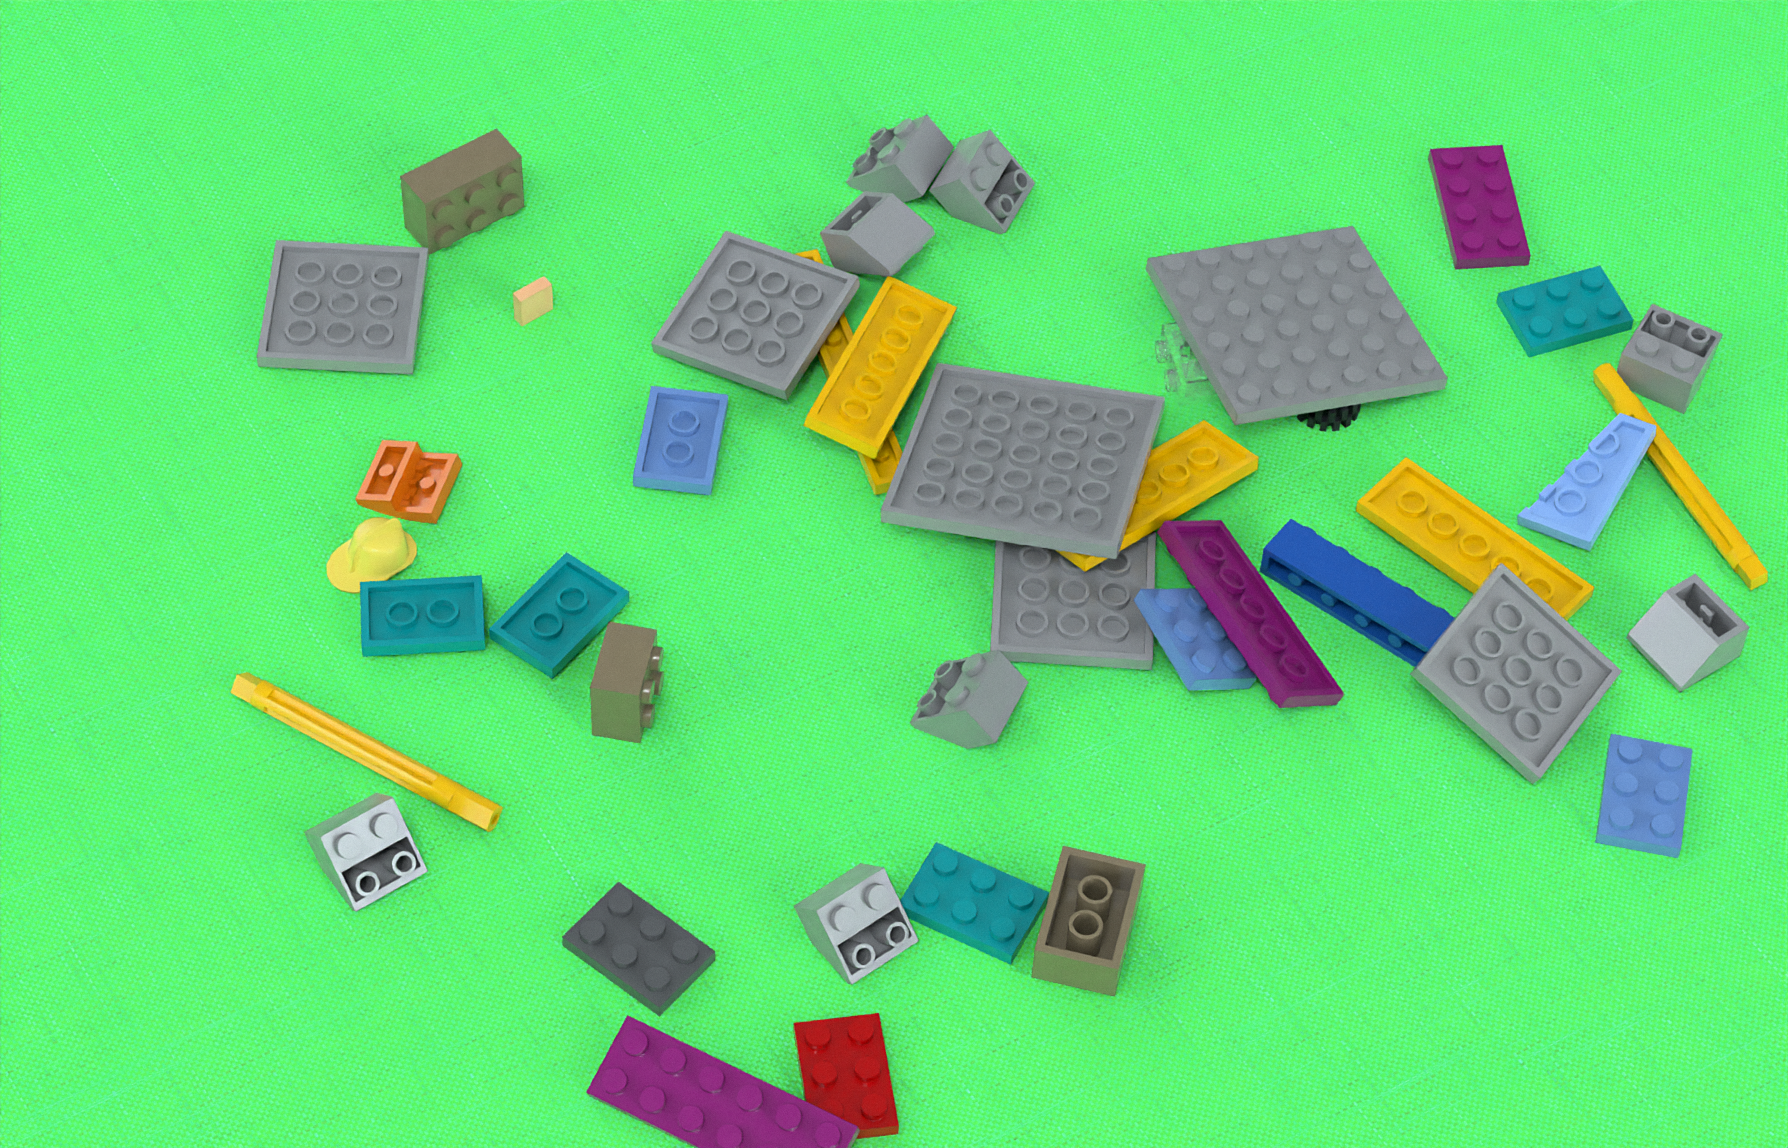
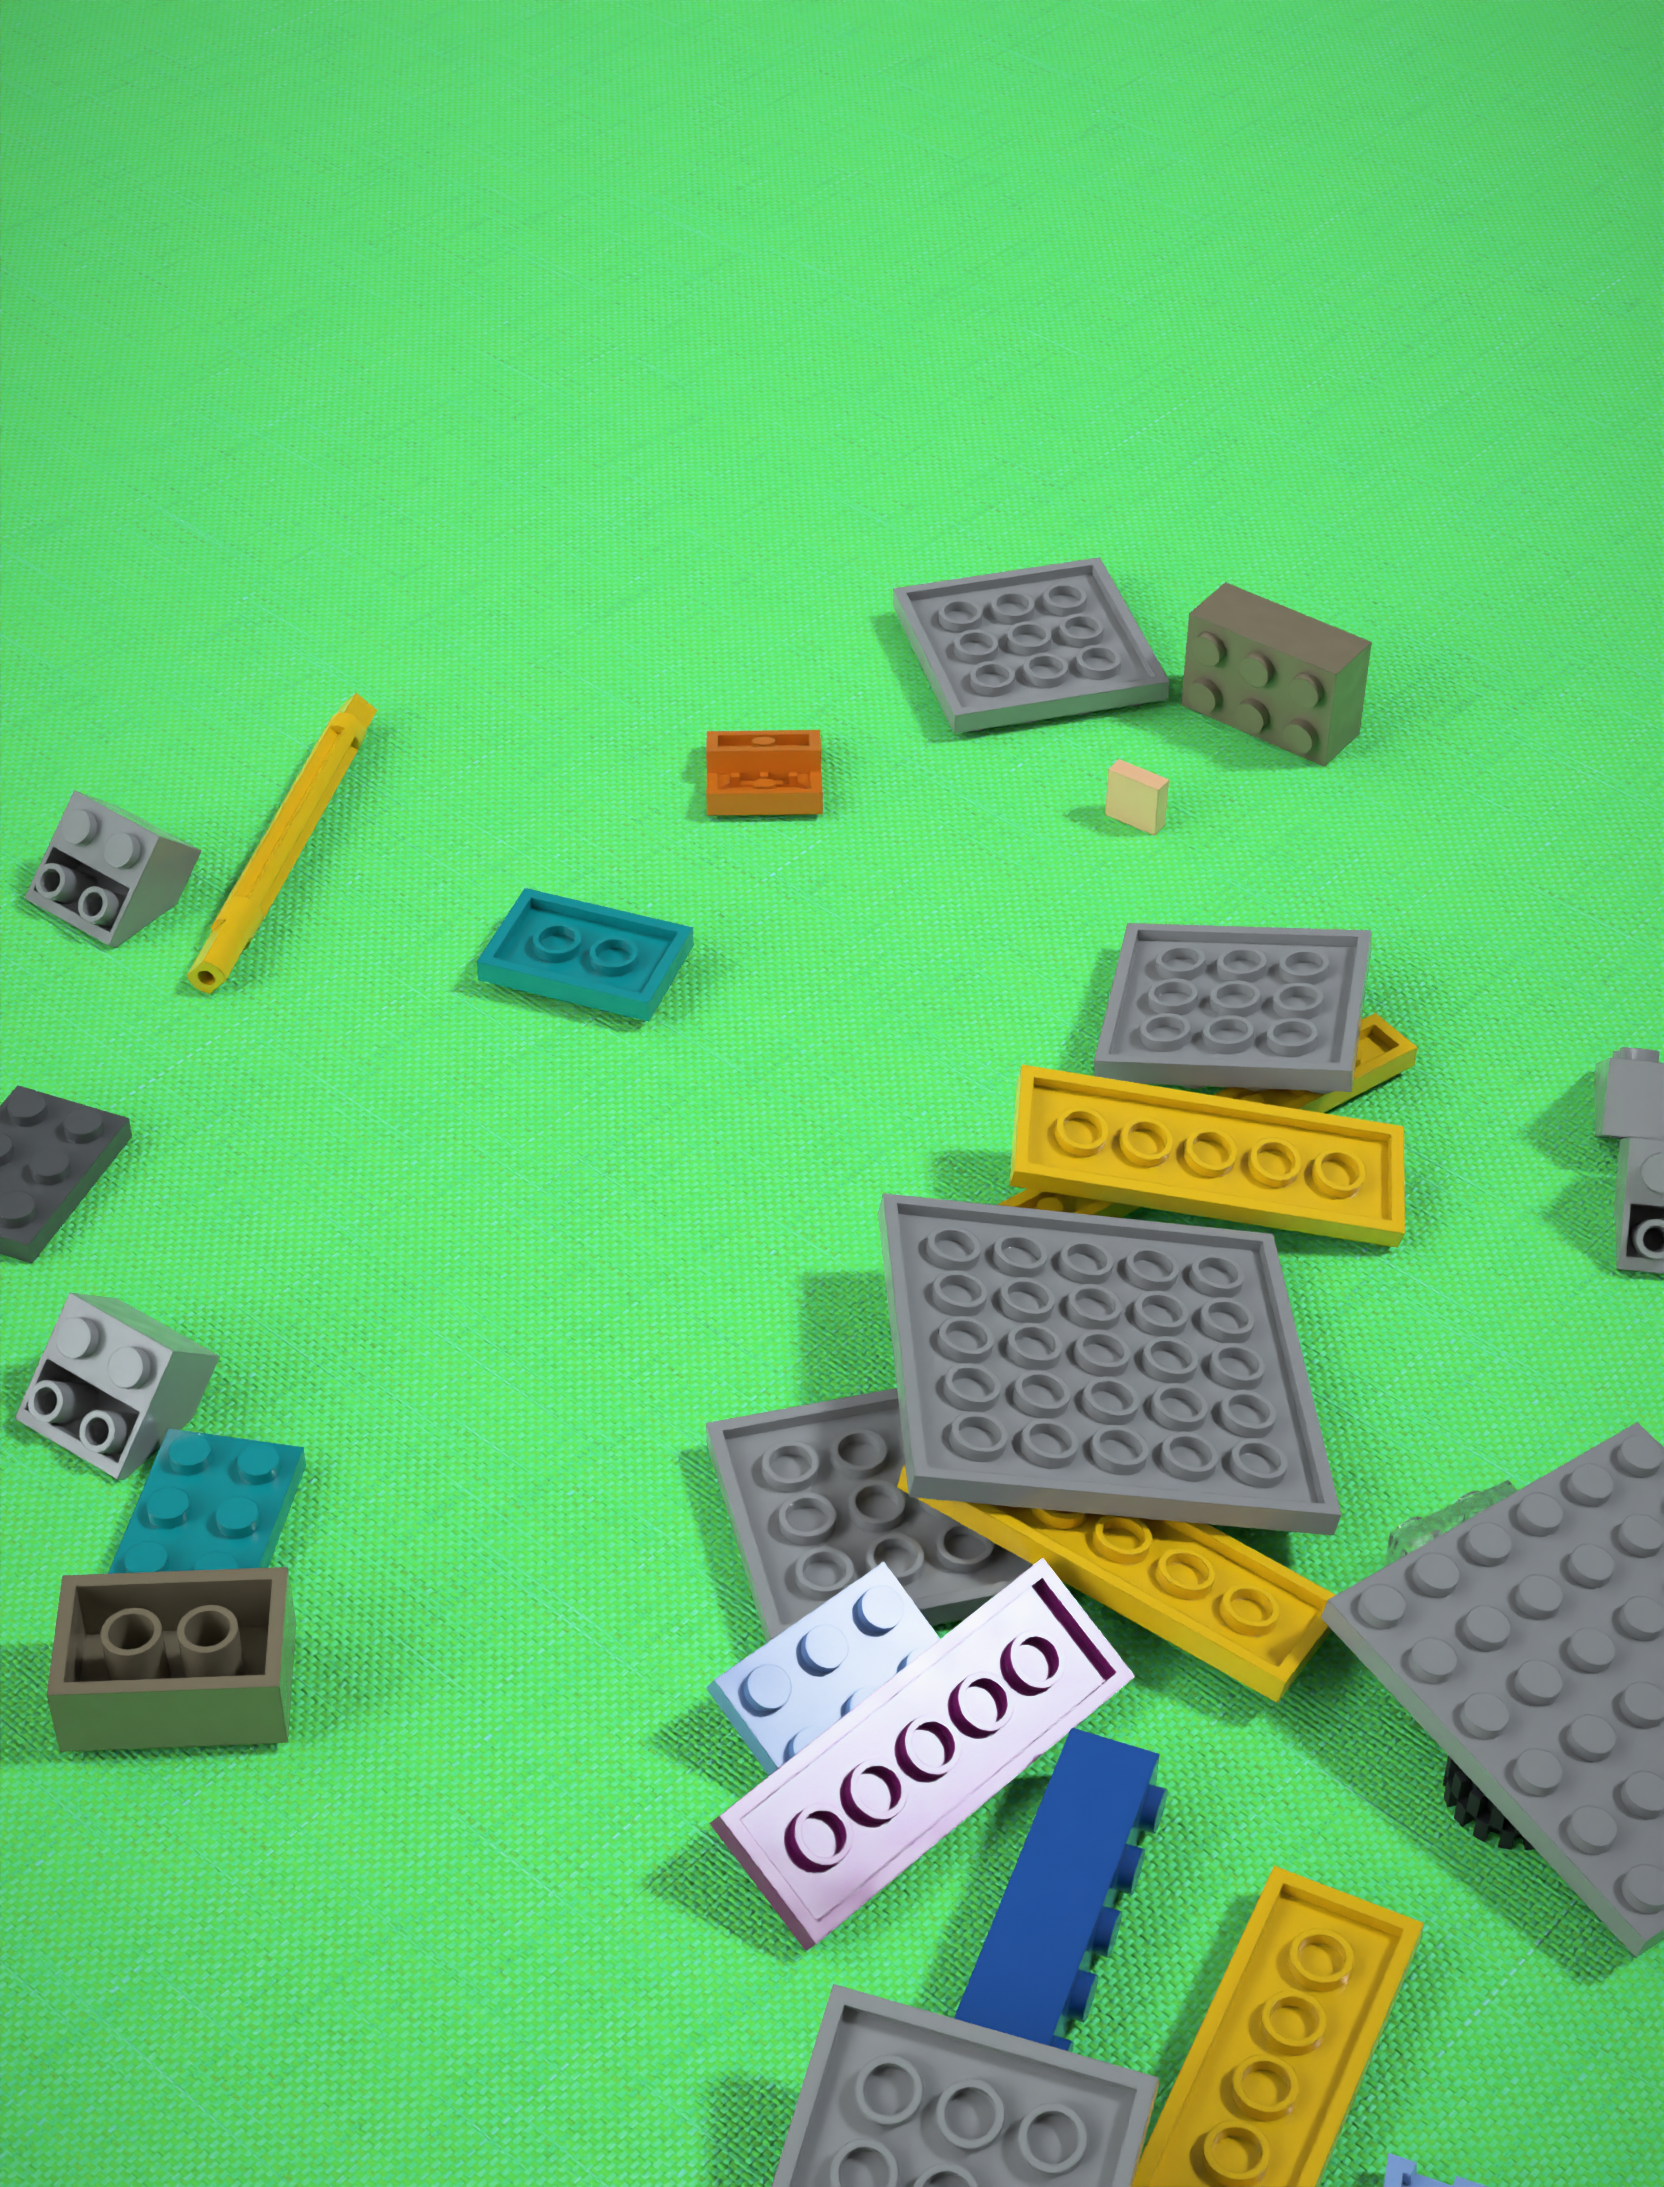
camera: 75 degrees right, 10 degrees down
(372, 554) = (627, 770): light yellow piece -> none
(422, 616) = (531, 831): teal plate -> none
(626, 682) = (460, 1020): dark tan brick -> none
(680, 440) = (965, 998): medium blue plate -> none
(875, 235) = (1472, 1091): light grey slope -> none
(970, 699) = (593, 1424): light grey slope -> none

